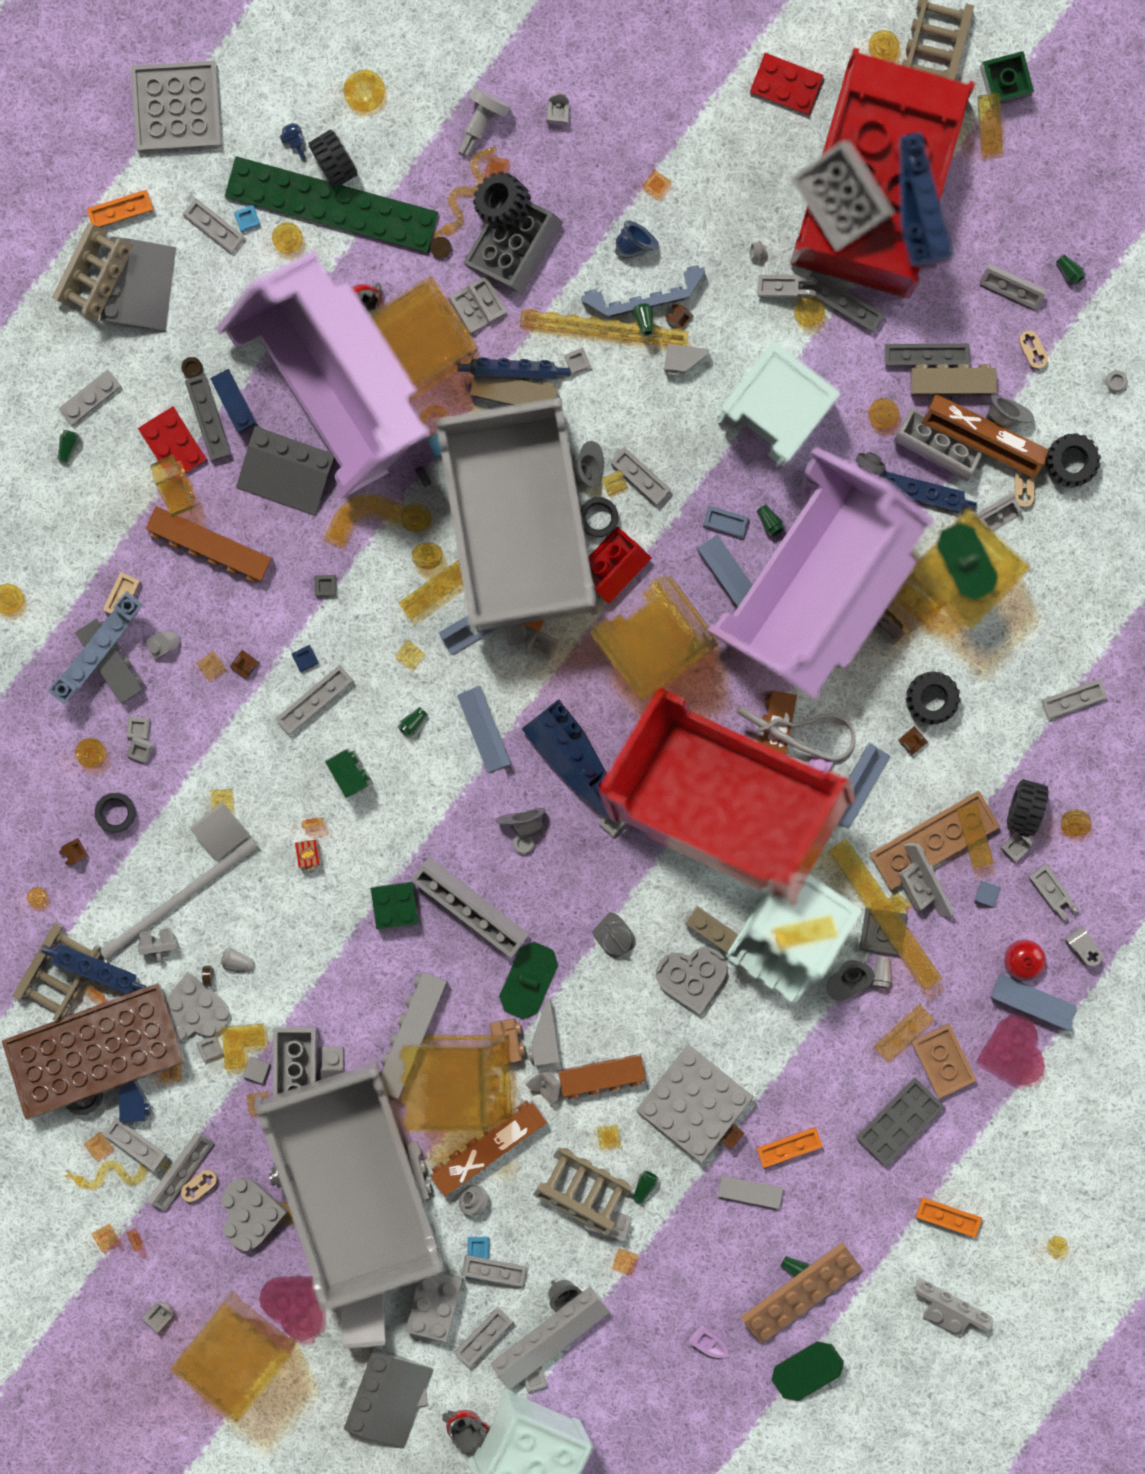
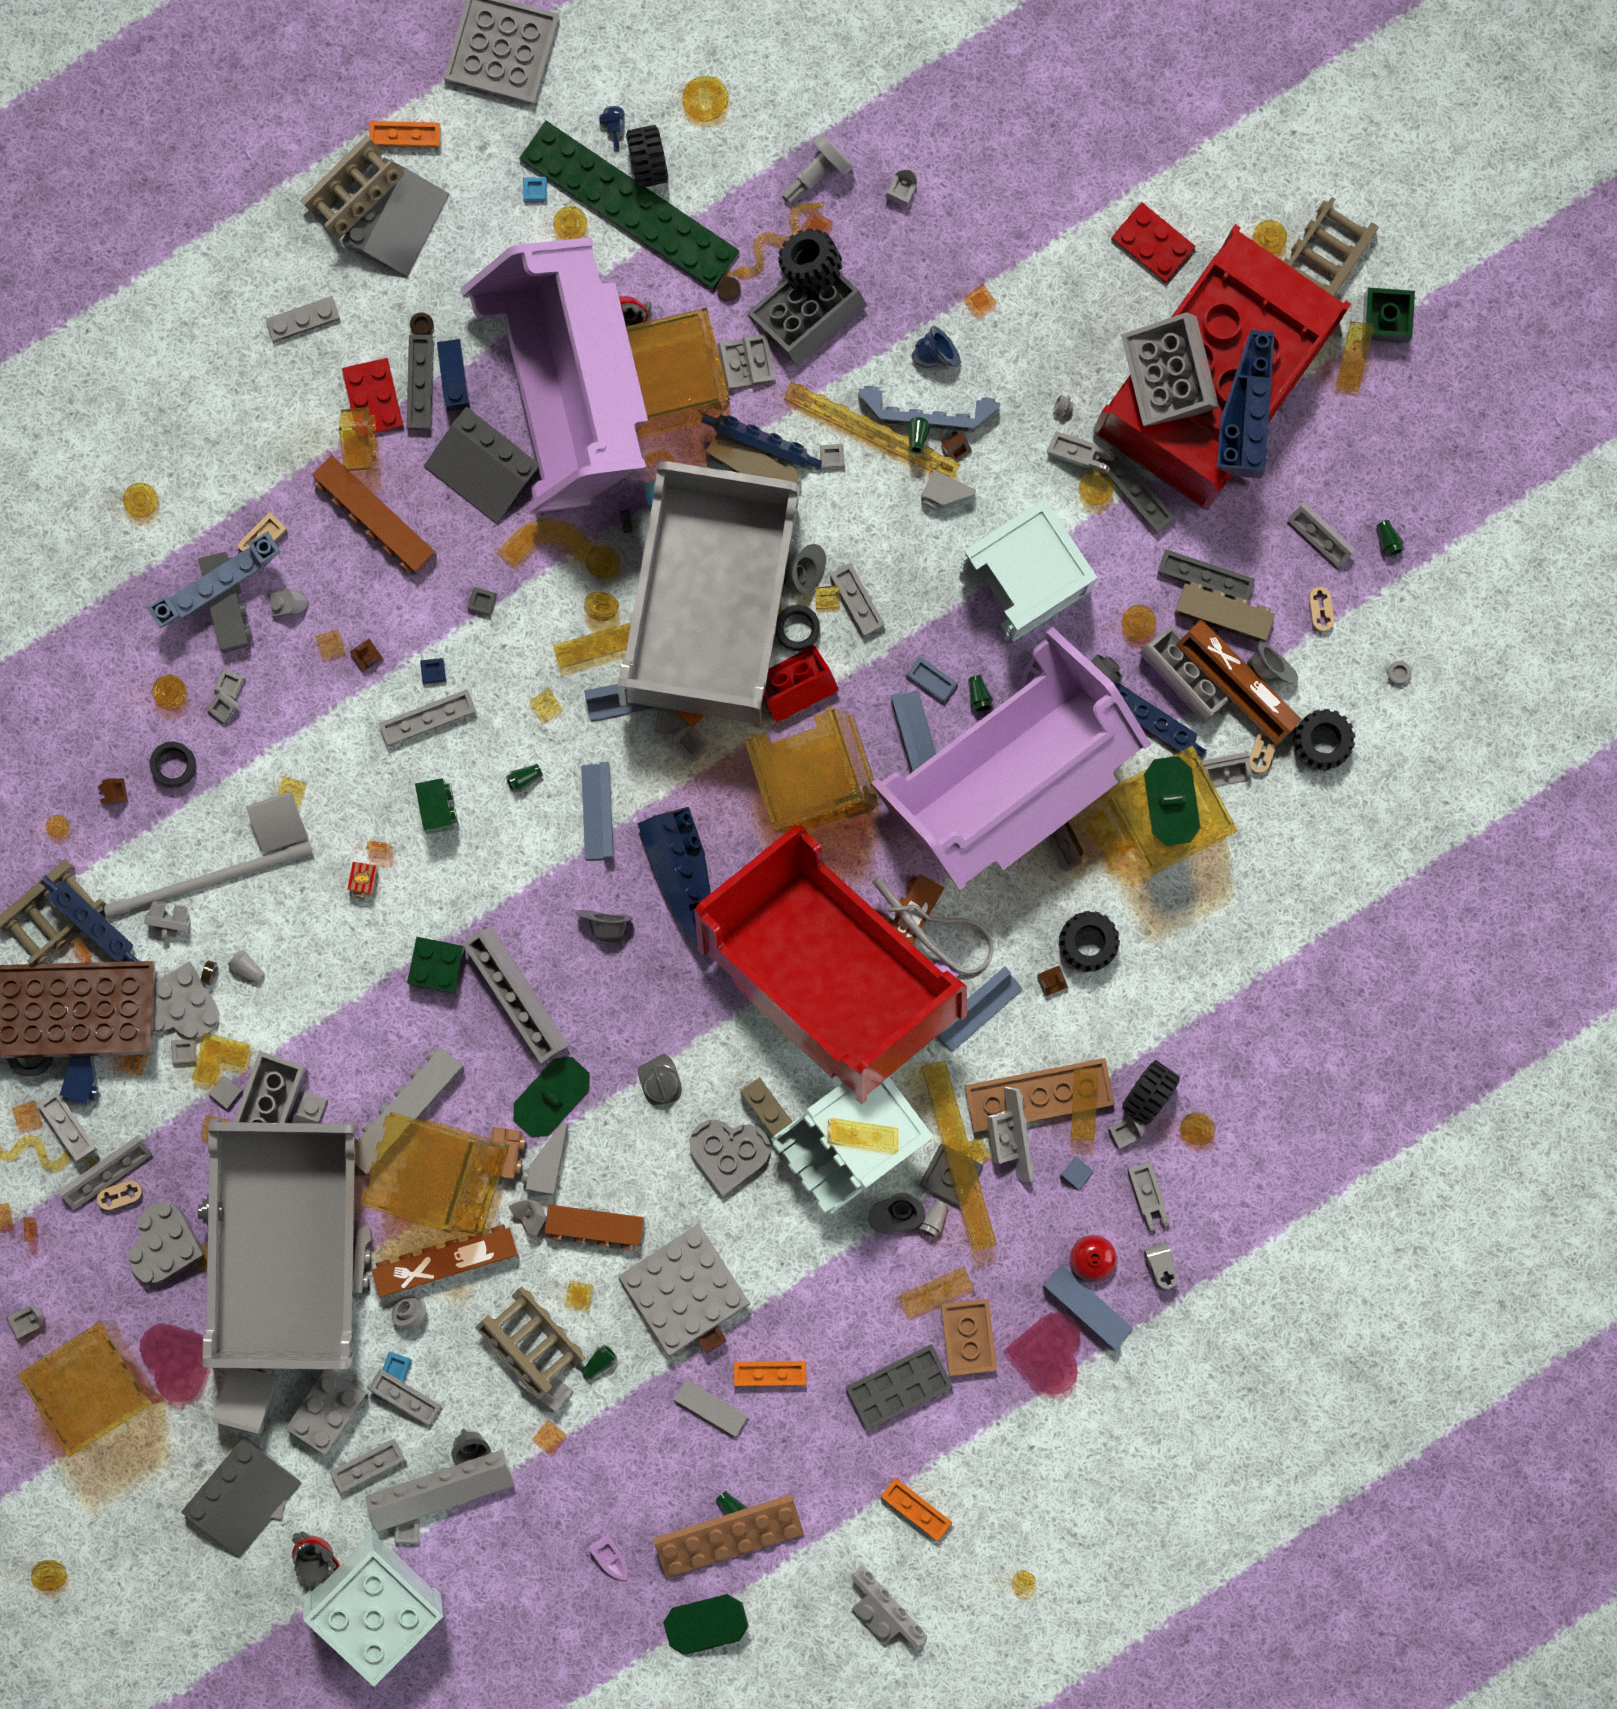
camera: 15 degrees right, 5 degrees down
(67, 444) = (261, 360): dark green cone -> none
(213, 225) = (497, 184): light grey tile -> none
(523, 844) = (596, 949): light grey tile -> none
(611, 826) = (699, 961): light grey tile -> none
(1074, 699) = (1241, 995): light grey tile -> none

